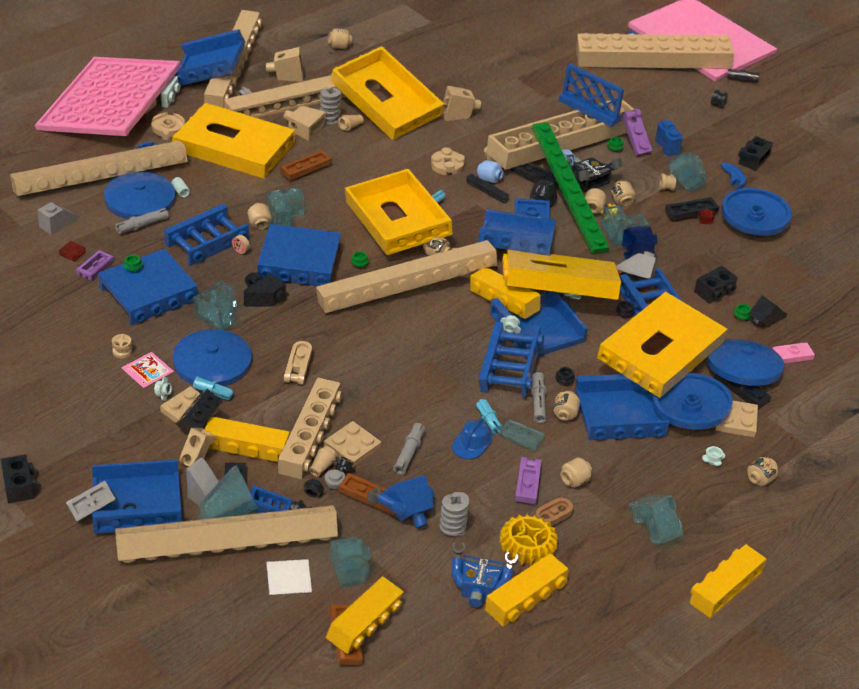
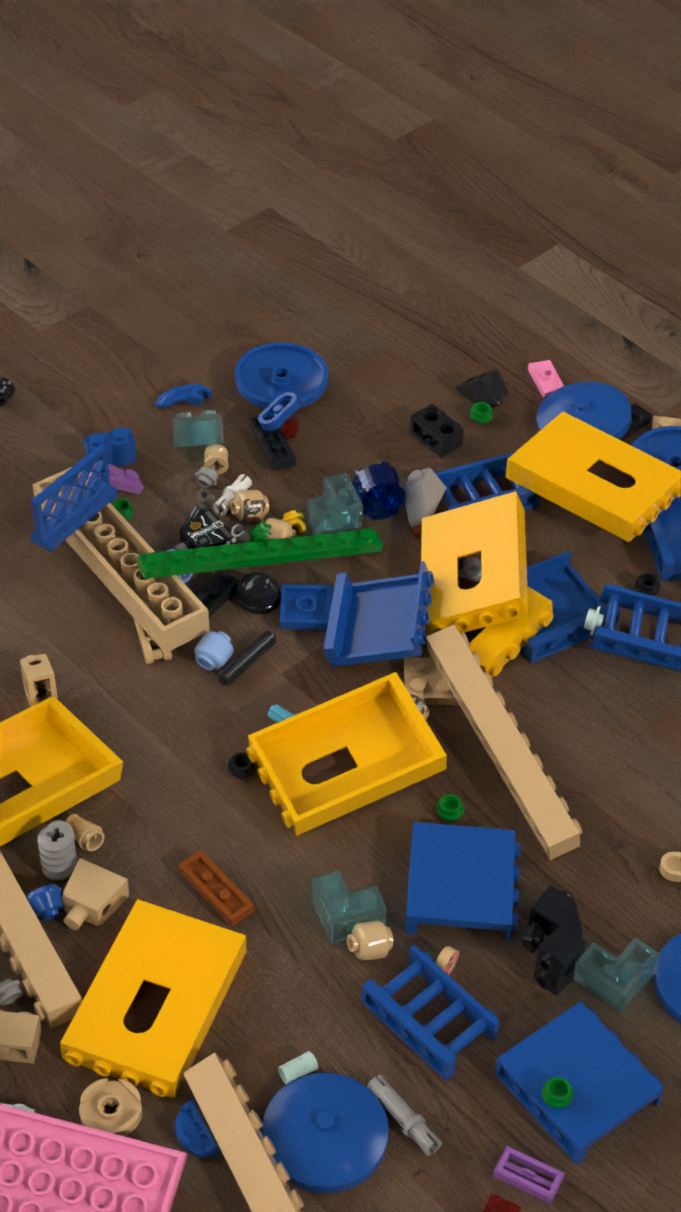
camera: 90 degrees left, 5 degrees up
(230, 273) = (557, 959): none -> black brick
(299, 101) = (46, 901): none -> blue cone
(447, 162) = (183, 693): tan plate -> none
(586, 183) = (260, 531): none -> green plate
(641, 191) = (229, 494): none -> white pin
(650, 179) = (206, 477): none -> light grey plate
(706, 201) = (279, 411): none -> blue plate
(755, 153) = (137, 367): black brick -> none

